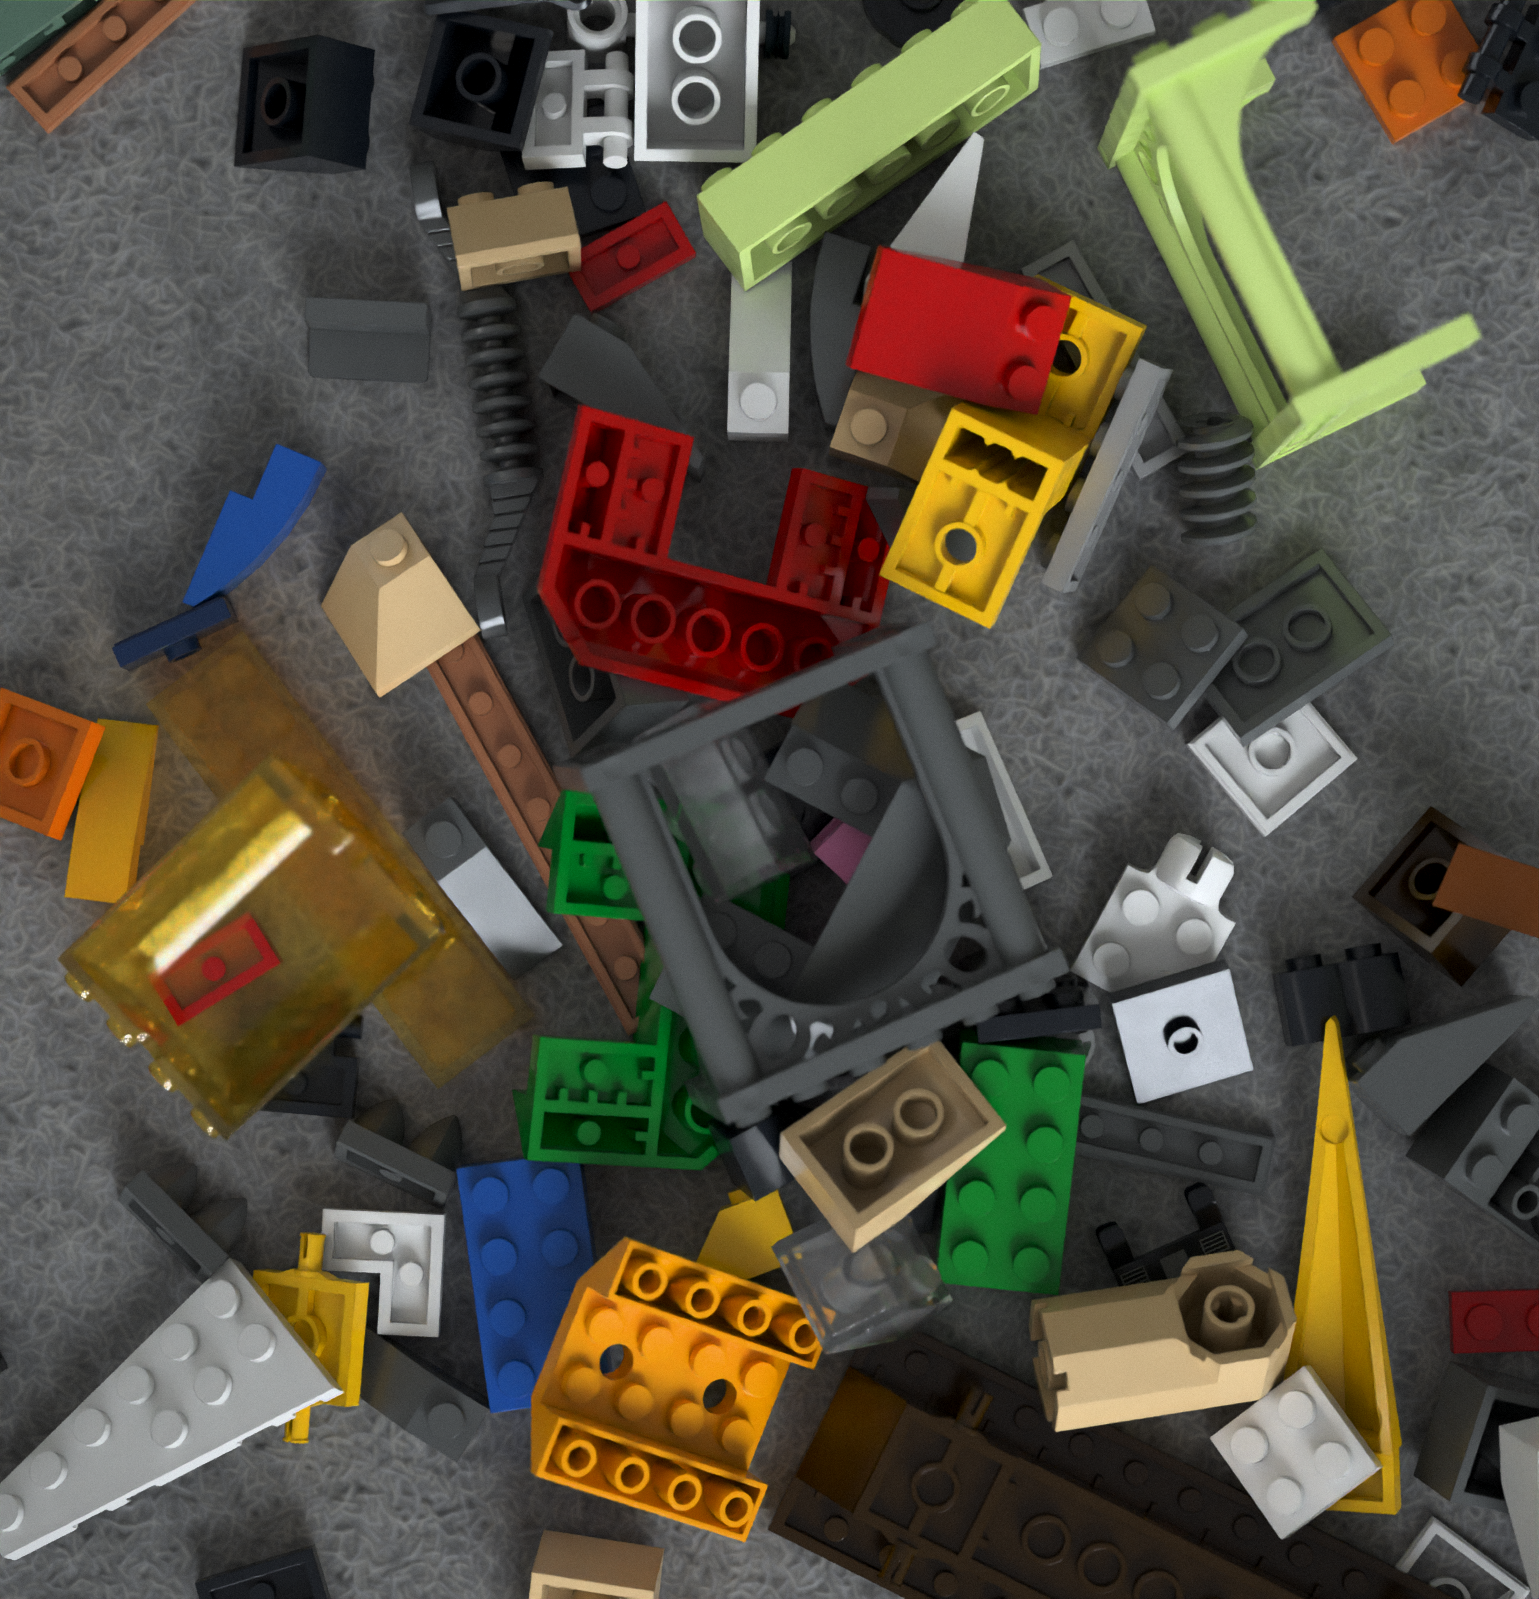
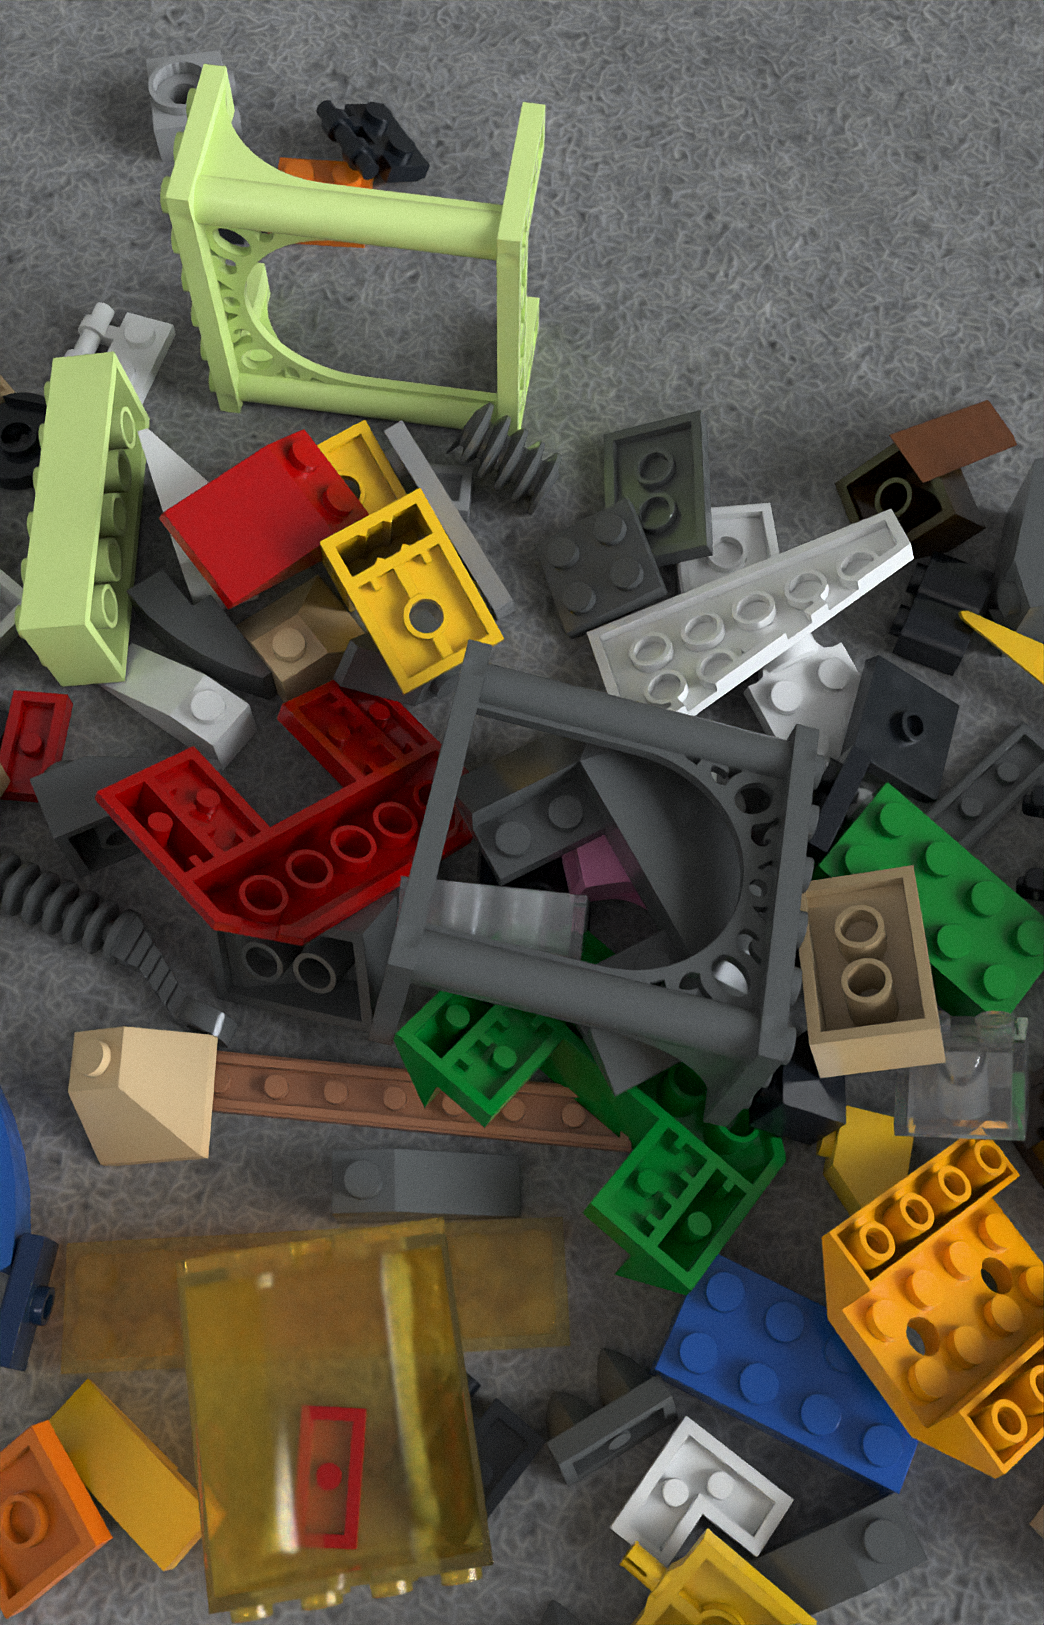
camera: 60 degrees left, 20 degrees down
(1144, 800) = (724, 631): none -> white wing

